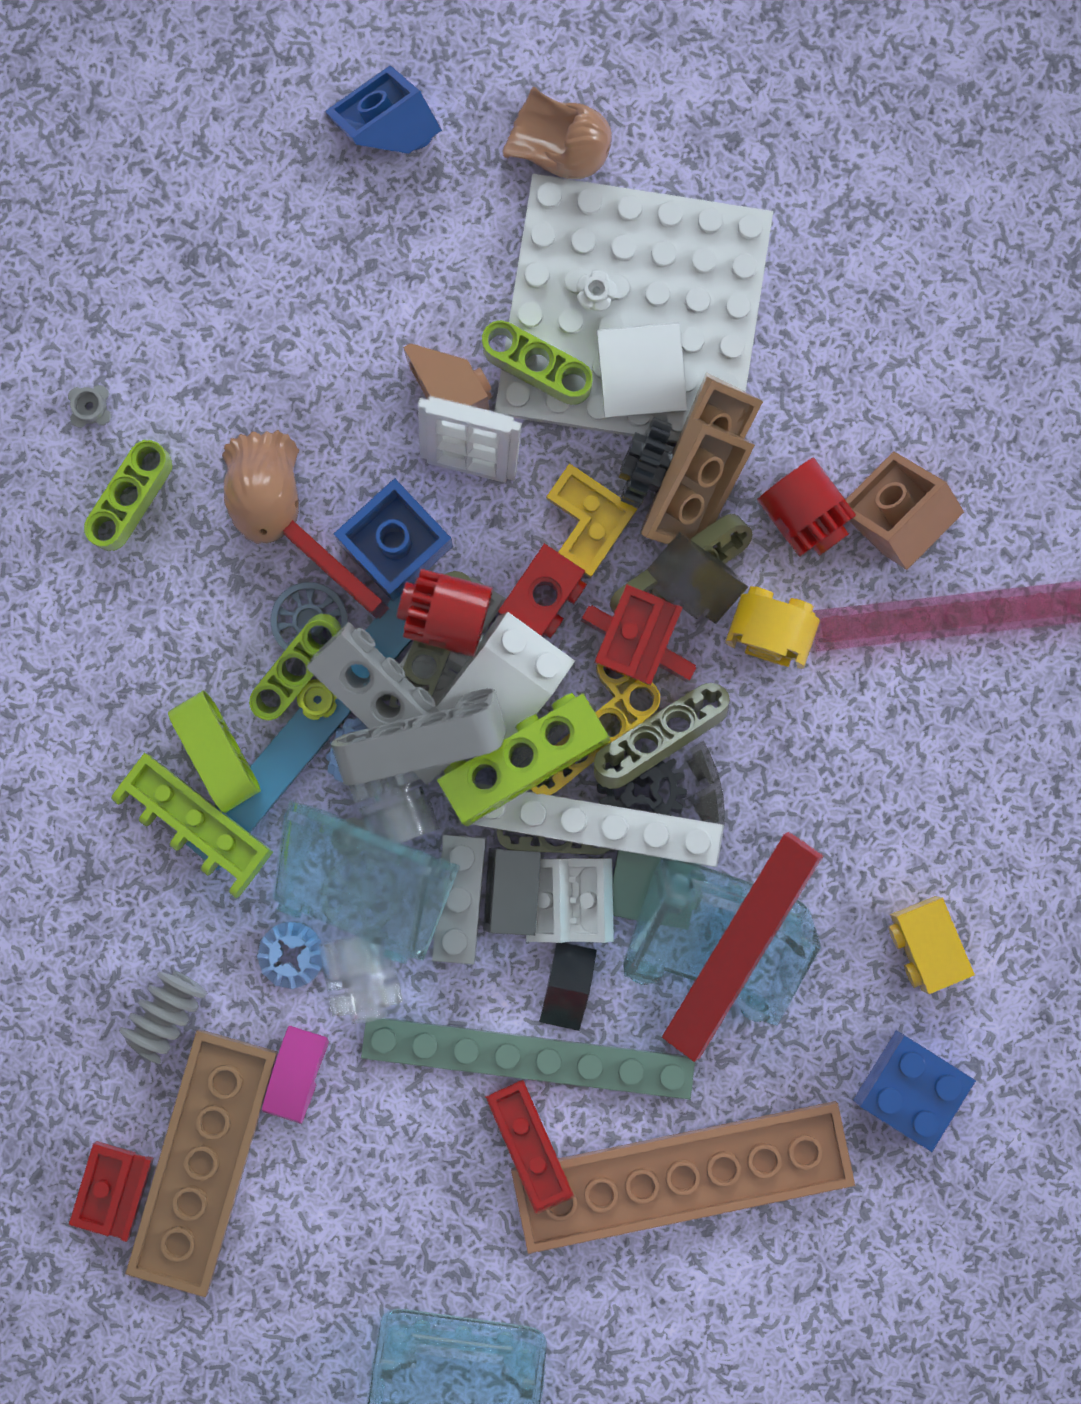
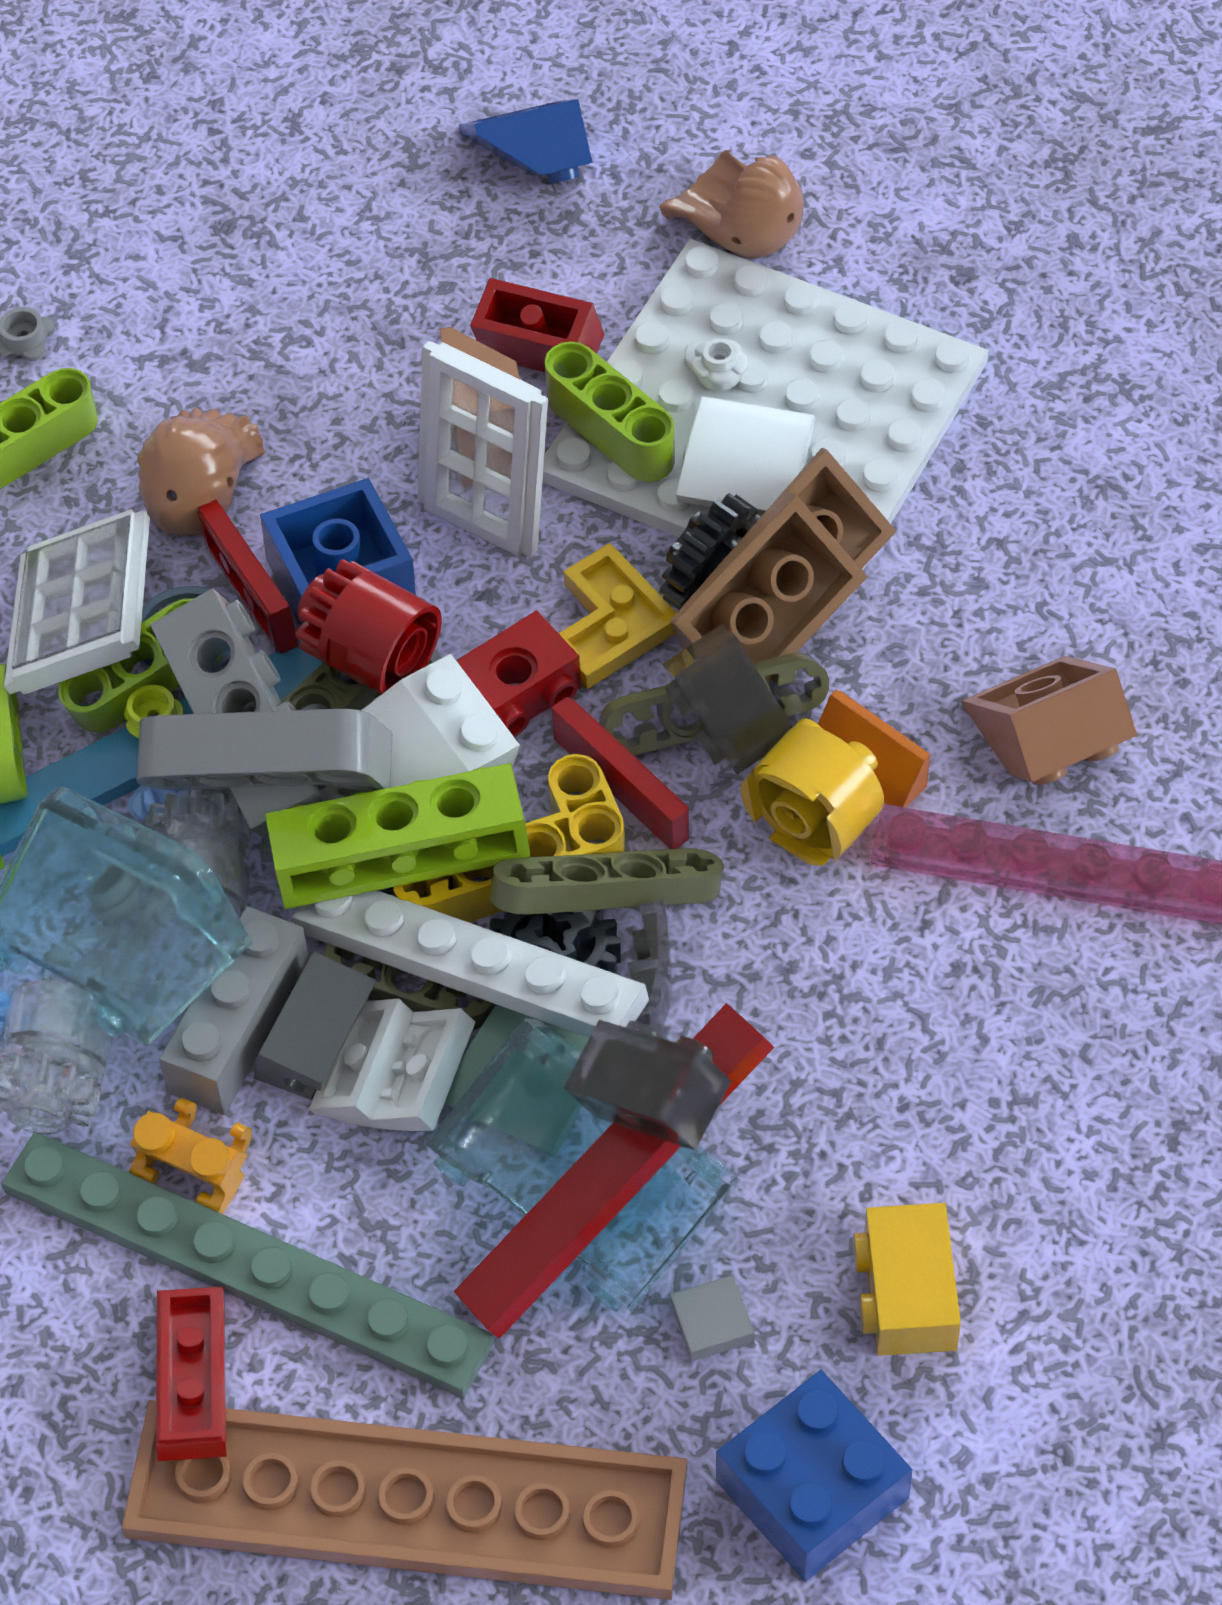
camera: 25 degrees right, 30 degrees down
(233, 633) = (78, 602): none -> clear piece
(457, 300) = (531, 321): none -> red brick
(470, 1003) = (190, 1152): none -> light orange piece
(568, 986) = (340, 1182): black slope -> none
(638, 635) = (618, 736): red plate -> none
(754, 905) = (648, 1082): none -> clear smoke brick
(792, 574) = (901, 762): none -> orange slope
(808, 509) = (913, 666): red gear -> none
(819, 1002) = (712, 1318): none -> light grey tile

